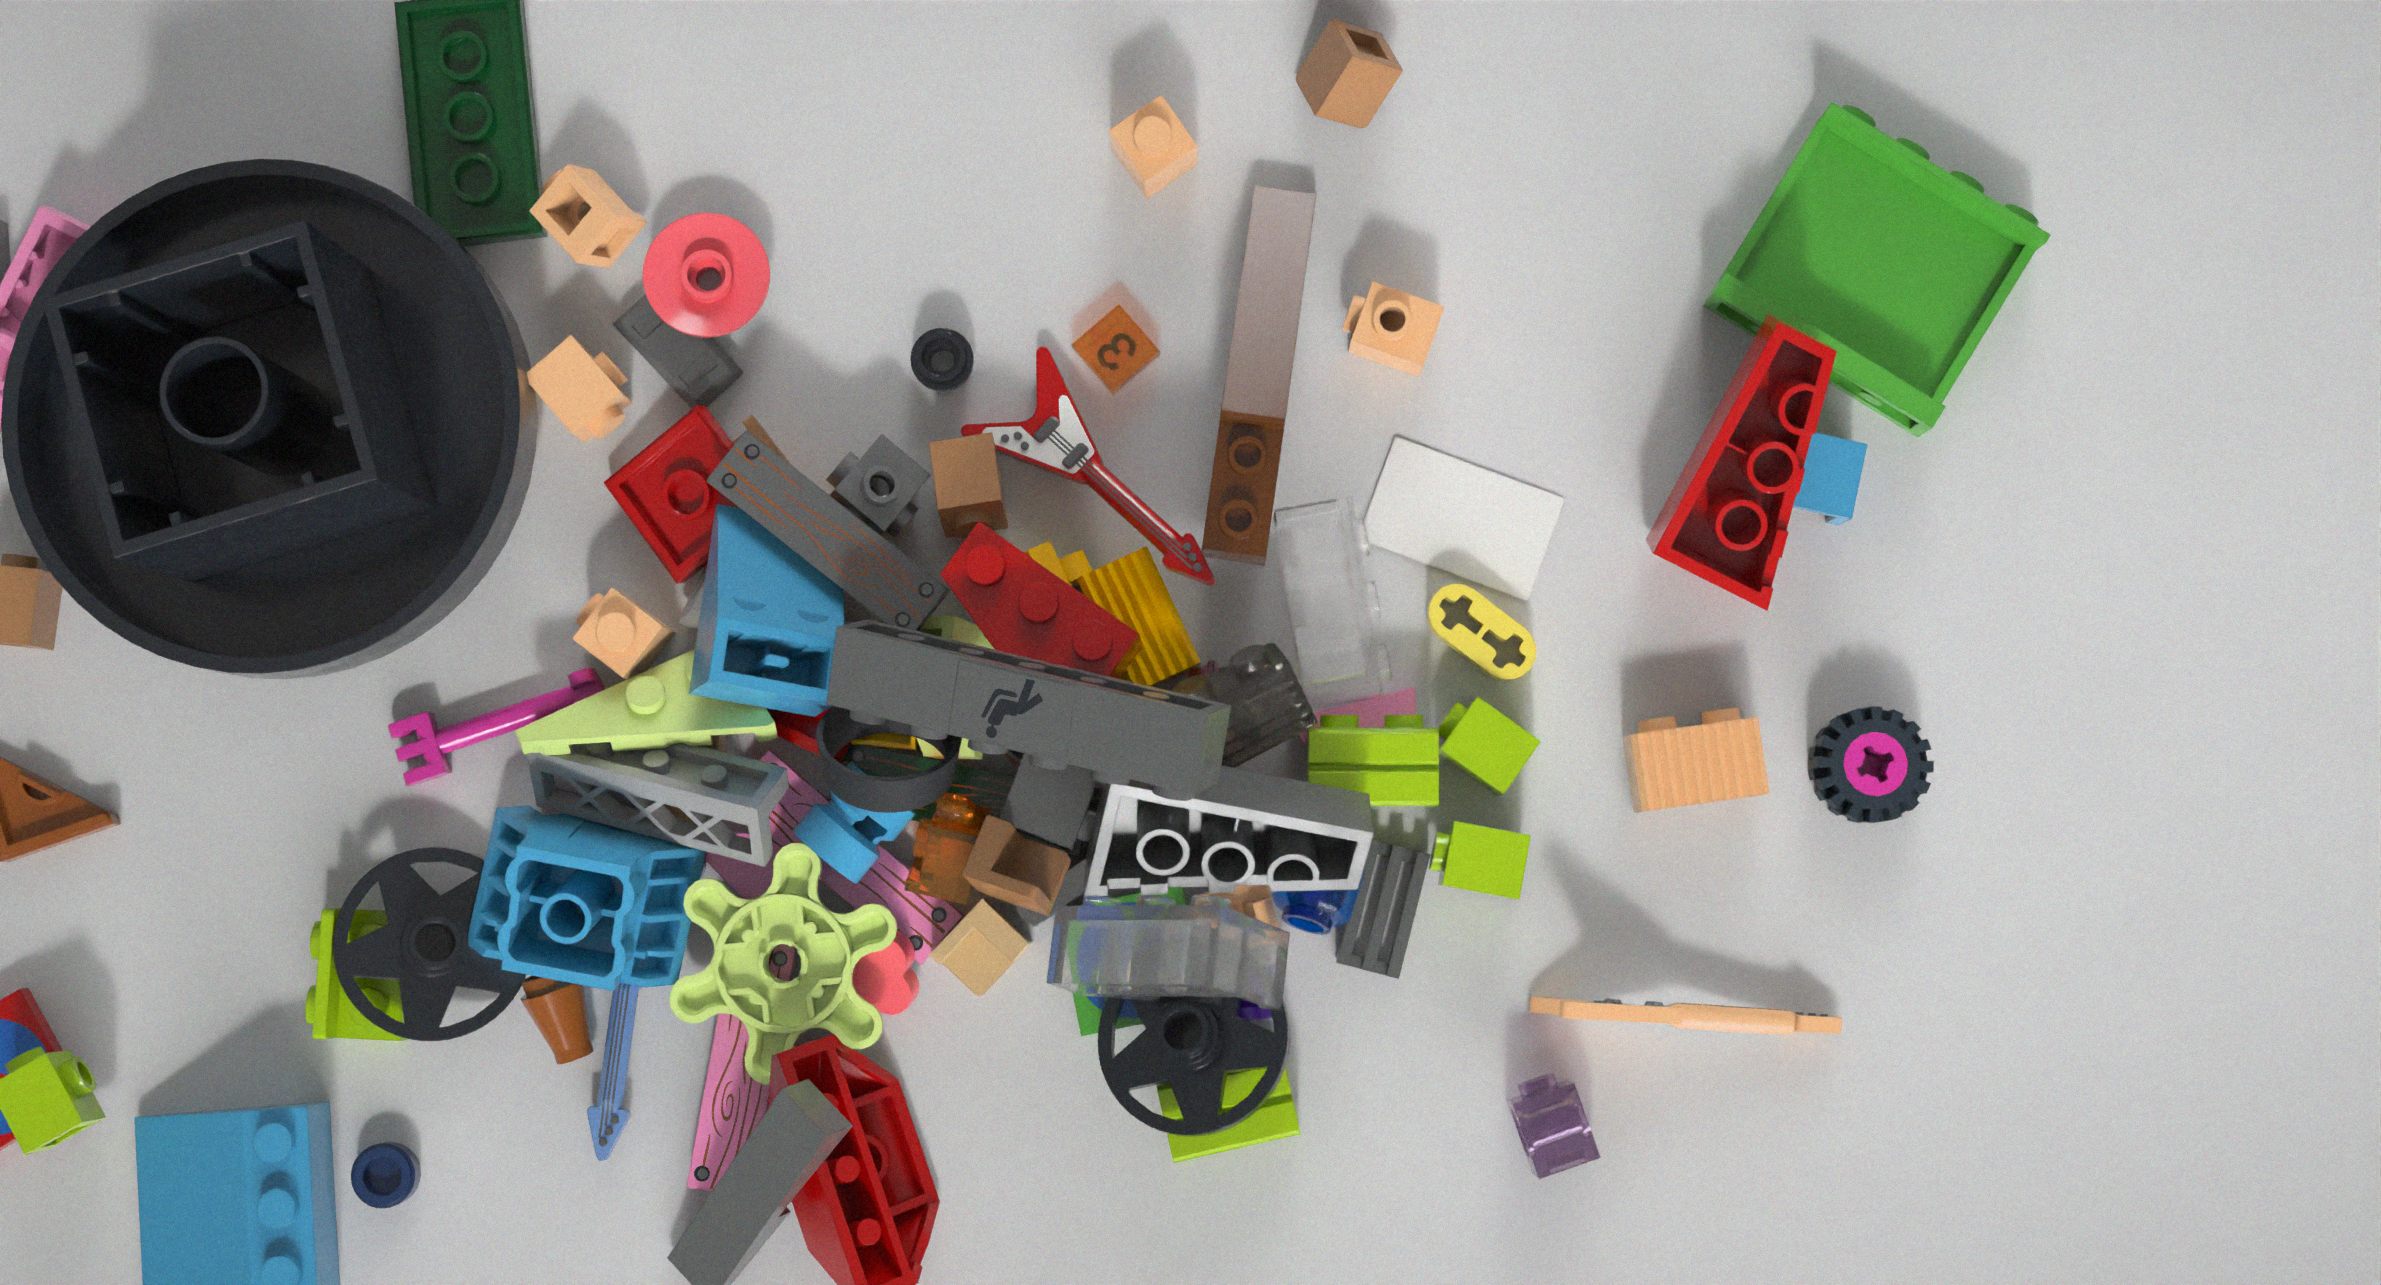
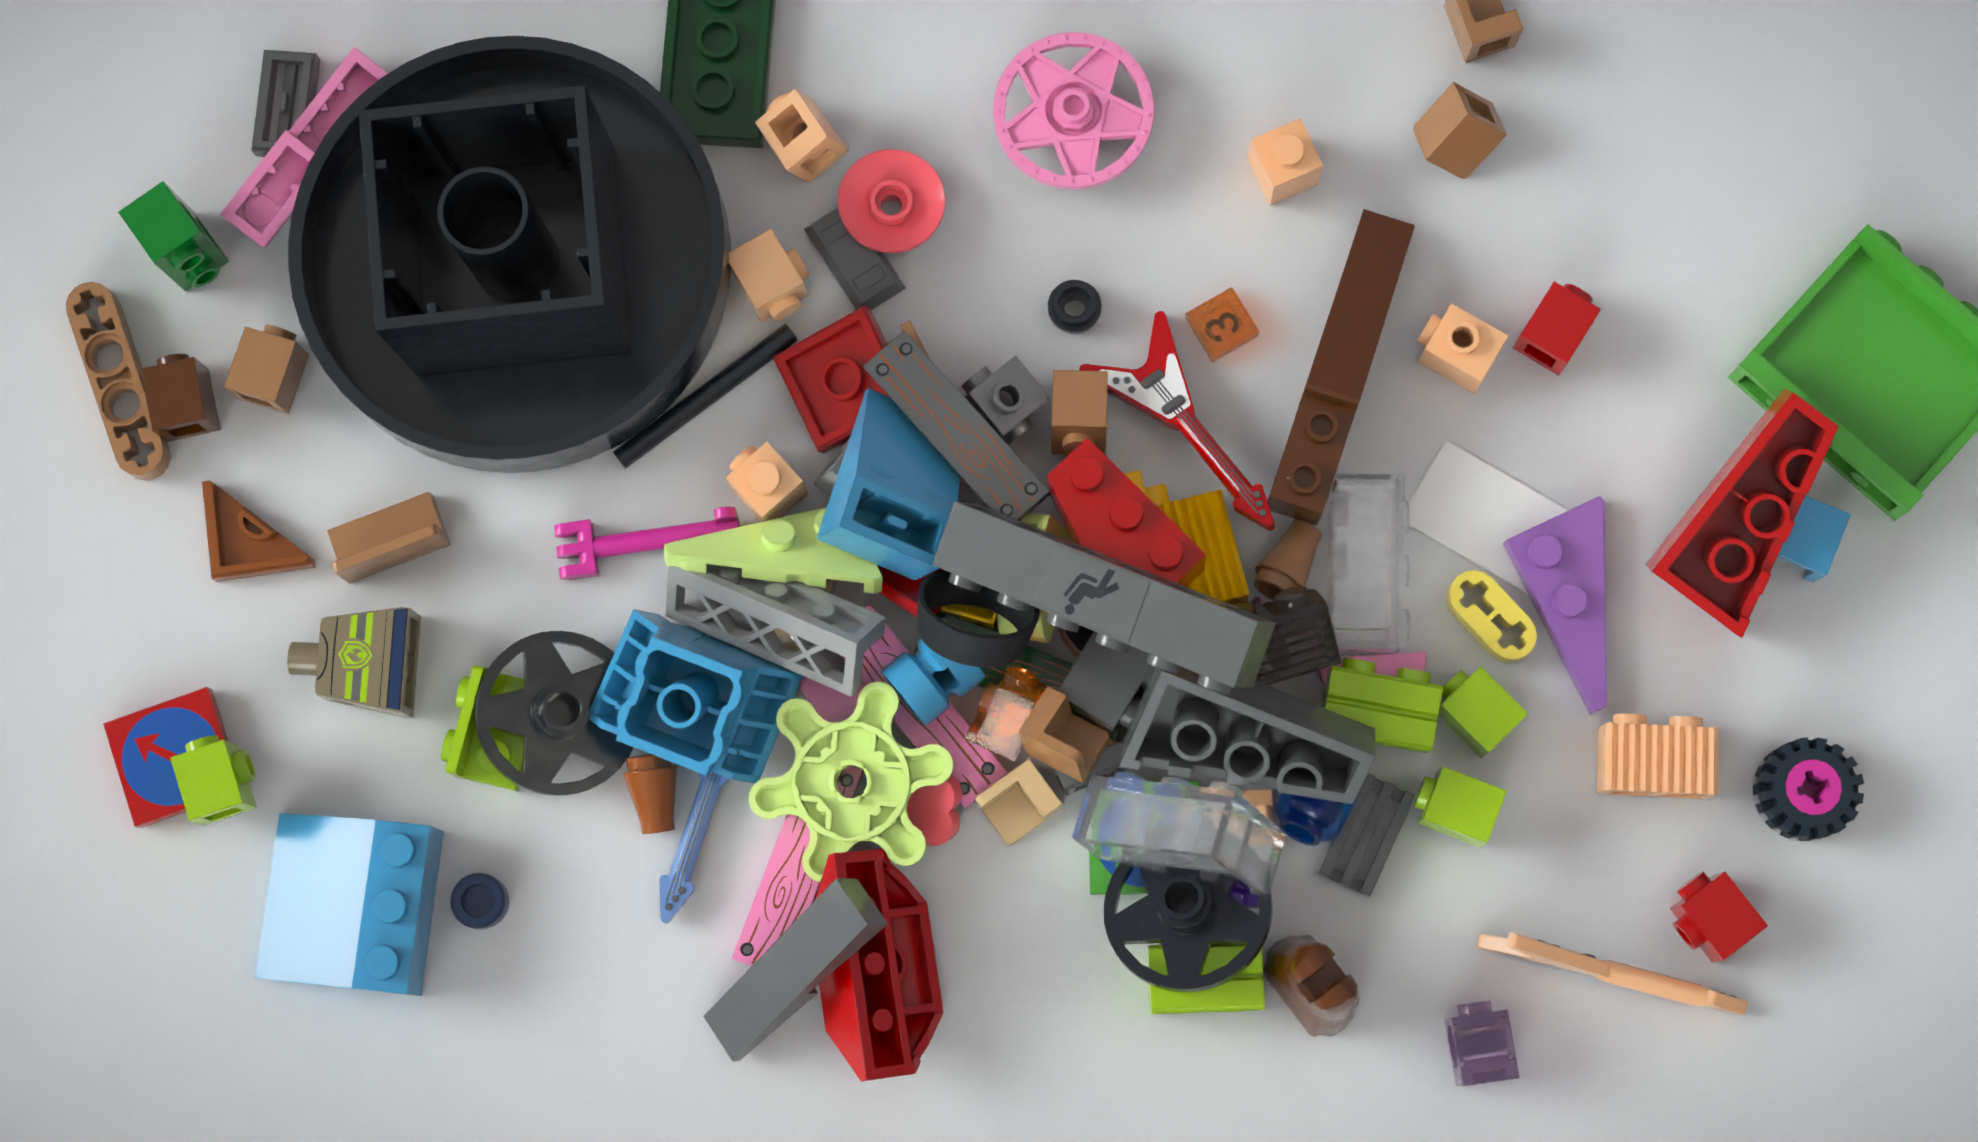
camera: 15 degrees right, 5 degrees down
(196, 776) = (388, 538): none -> medium nougat panel
(196, 924) = (364, 660): none -> dark tan torso
(534, 542) = (705, 396): none -> black bar
(898, 130) = (1073, 110): none -> bright pink wheel
(1240, 611) = (1288, 560): none -> medium nougat cone
(1348, 1091) = (1312, 984): none -> reddish brown piece
(1500, 283) = (1557, 327): none -> red brick
(1558, 574) = (1566, 581): none -> medium lavender wing
(1789, 929) = (1715, 916): none -> red brick

